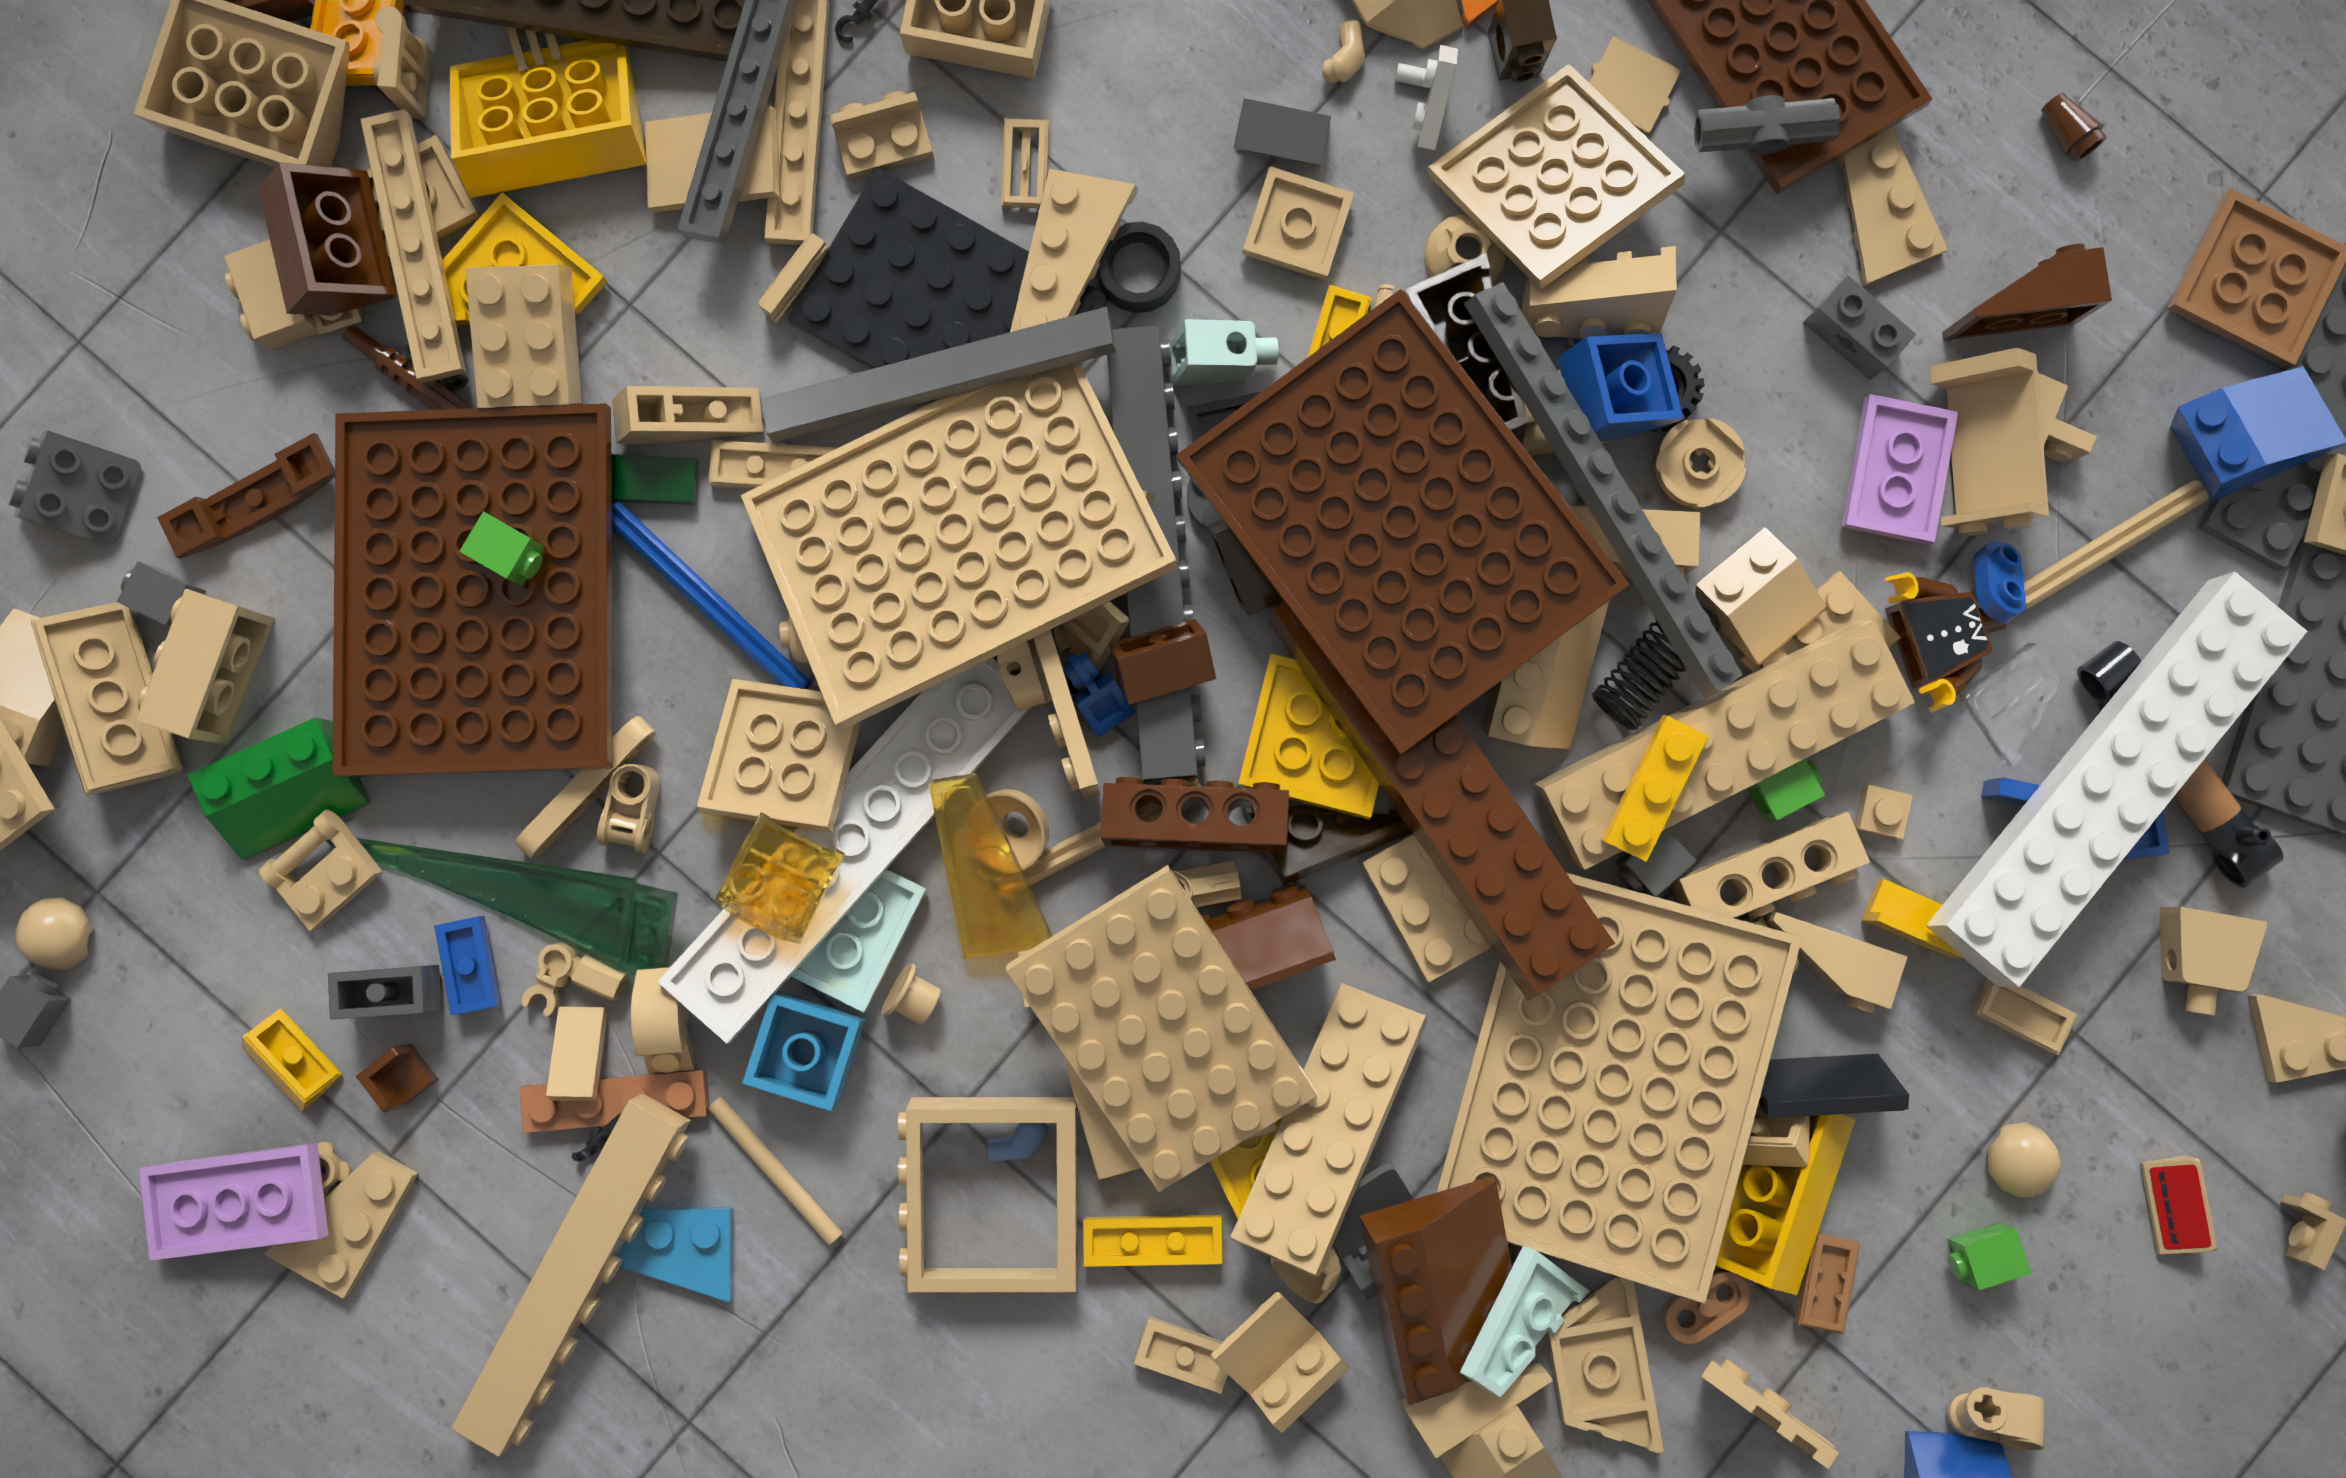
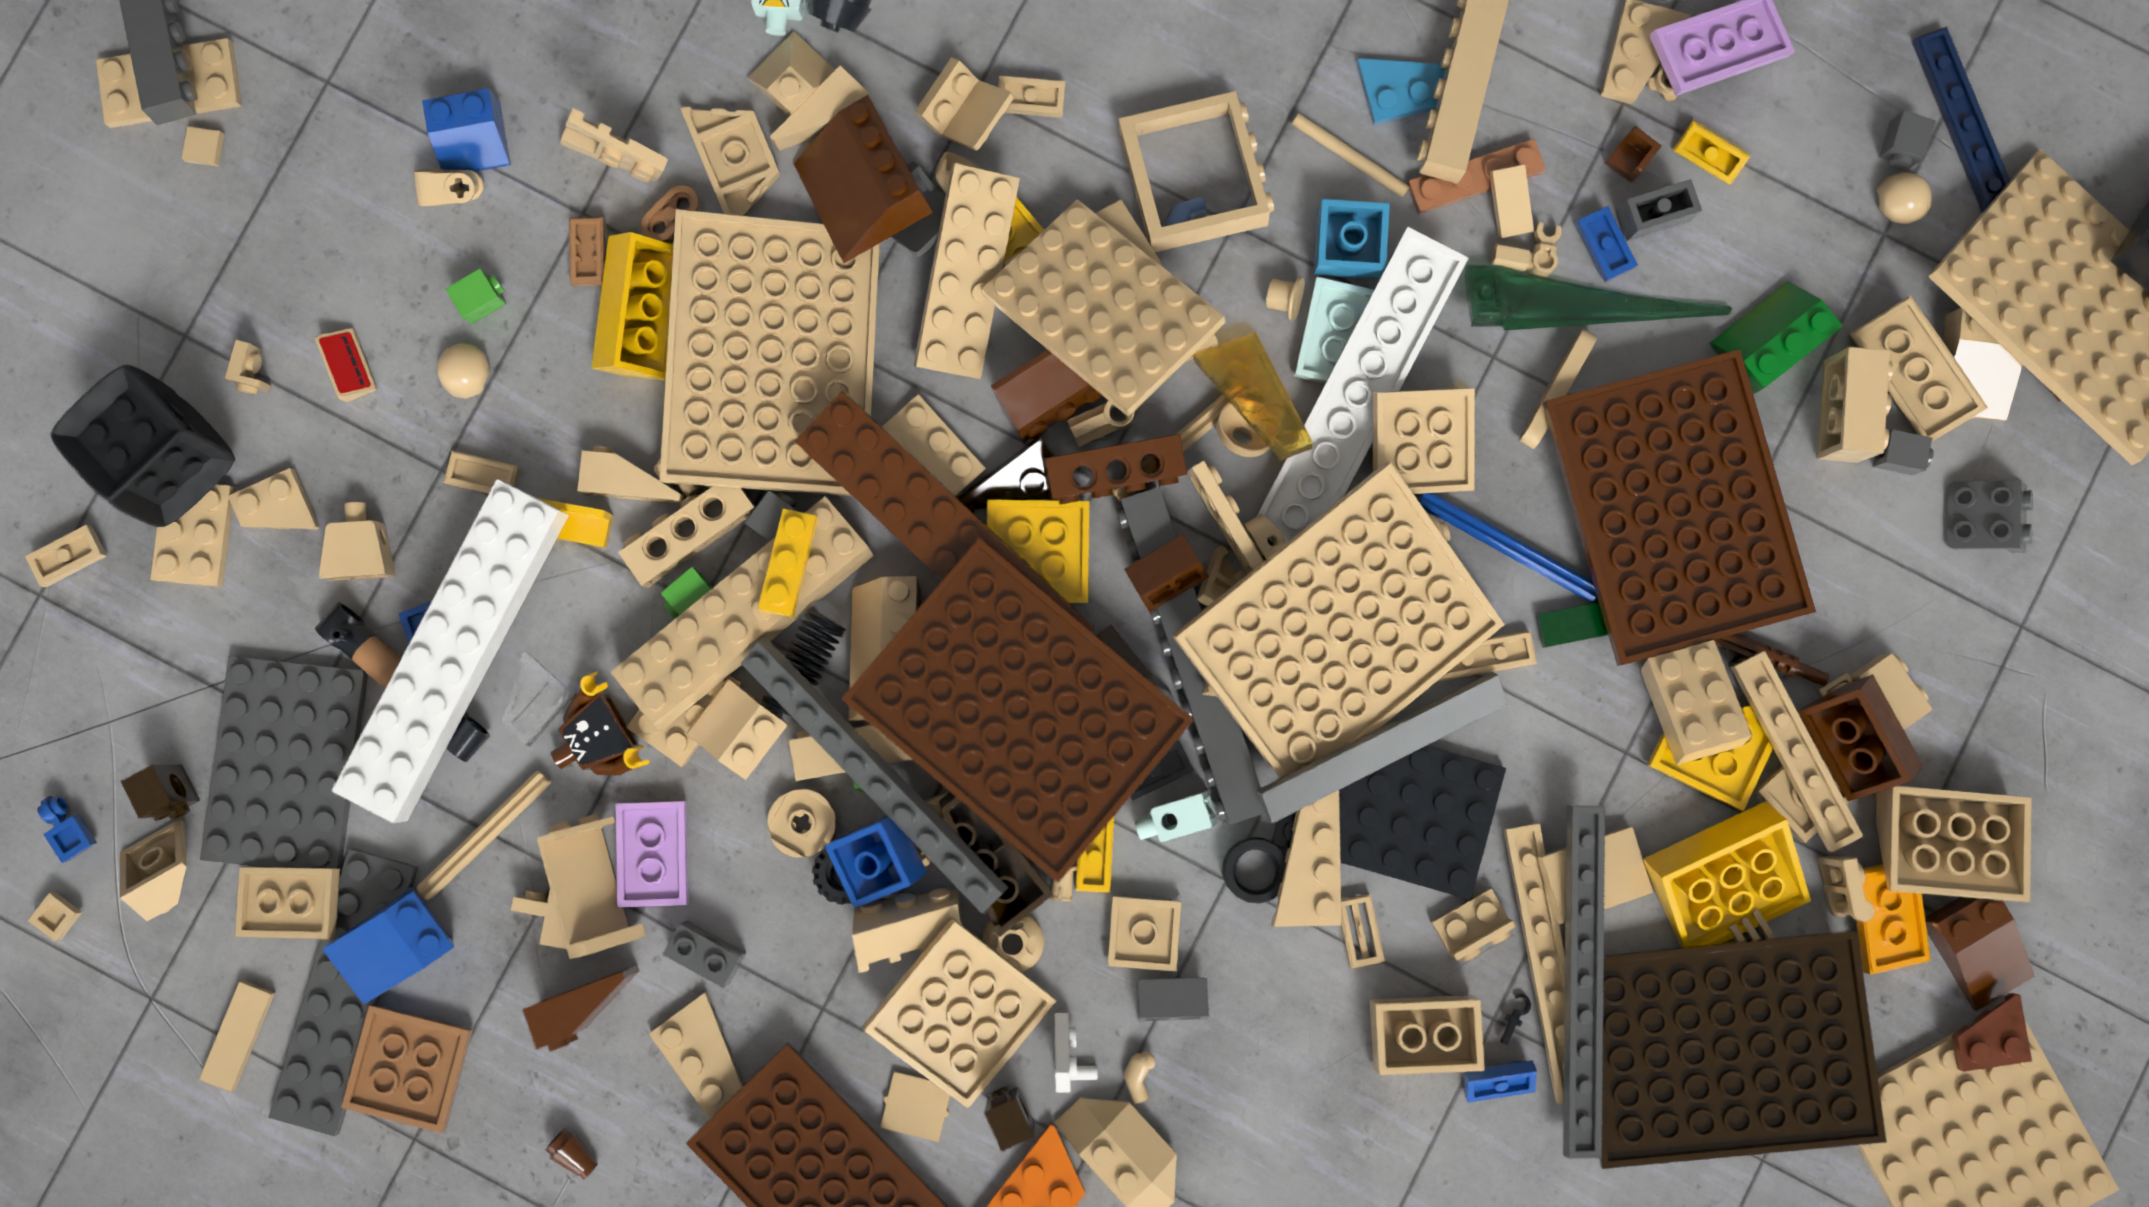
camera: 170 degrees right, 0 degrees up
(250, 501) = (1860, 537): reddish brown slope -> none
(330, 882) = (1719, 280): tan plate -> none
(503, 549) = (1664, 536): bright green brick -> none
(598, 1138) = (1480, 146): black hand -> none
(628, 811) = (1522, 375): tan piece -> none
(660, 1025) = (1459, 231): tan brick -> none
(685, 414) = (1560, 677): tan slope -> none
(778, 880) = (1401, 348): clear yellow slope -> none
(793, 279) = (1510, 797): tan tile -> none
(1101, 700) = (1205, 537): blue plate -> none
(1152, 1240) = (1072, 168): yellow plate -> none
(1522, 1314) = (801, 176): light aqua wing -> none
(1766, 125) = (809, 1087): dark grey piece -> none
(1778, 1141) = (645, 340): tan slope -> none
(1831, 1086) = (616, 385): black tile -> none
(1883, 812) = (613, 596): tan plate -> none
(1999, 581) = (564, 788): blue plate -> none
(2008, 790) = (524, 632): blue tile -> none

